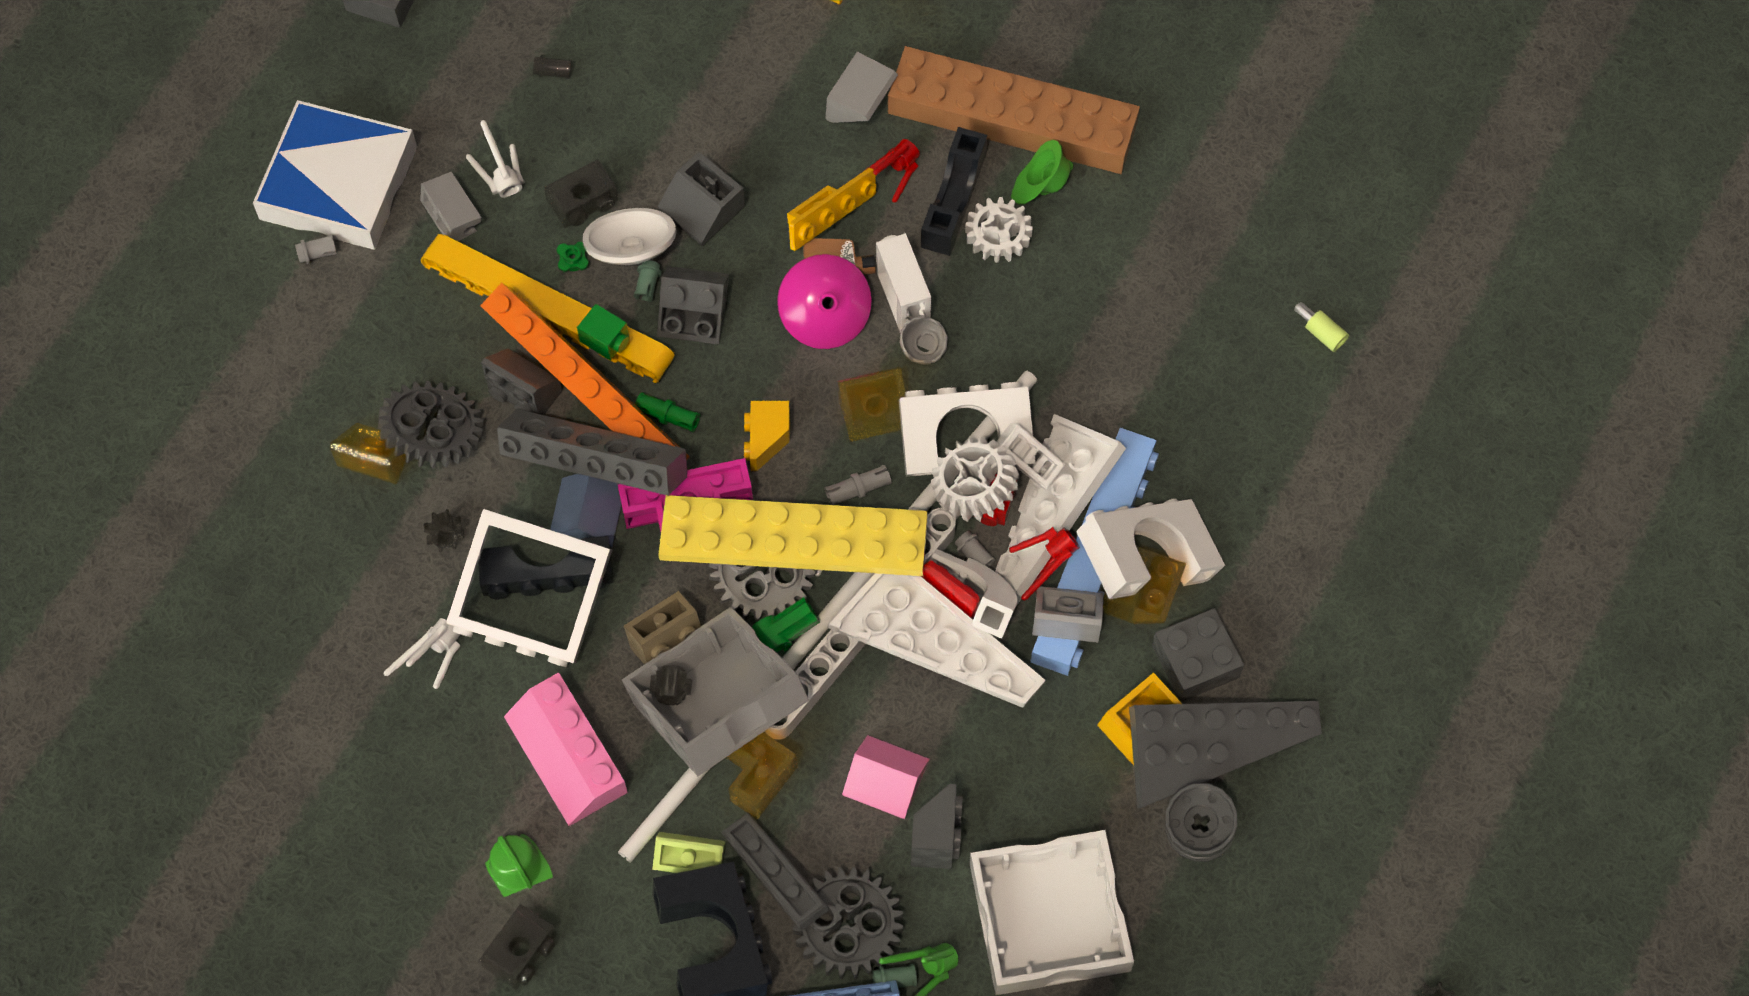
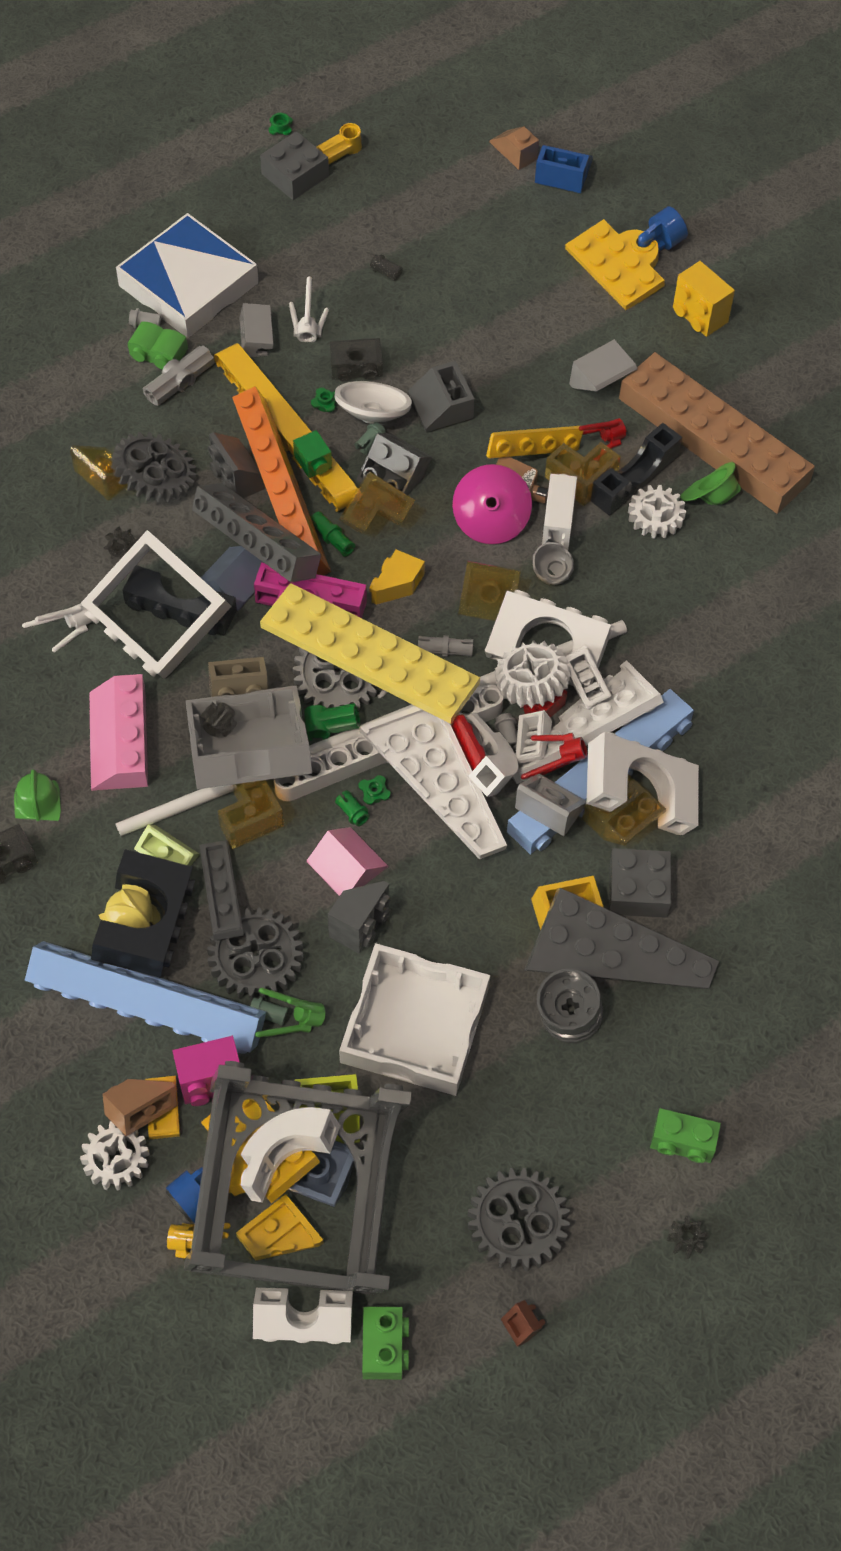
camera: 25 degrees right, 5 degrees down
(349, 275) = (156, 344): none -> bright green brick
(393, 300) = (178, 375): none -> light grey piece
(693, 941) = (131, 908): none -> light yellow helmet
(694, 353) = (375, 497): none -> clear yellow brick
(861, 714) = (357, 814): none -> green pin
(871, 692) = (374, 797): none -> green plate
(907, 216) = (586, 469): none -> clear yellow brick
(995, 529) = (527, 722): none -> white slope
(1380, 901) = (685, 1136): none -> bright green brick

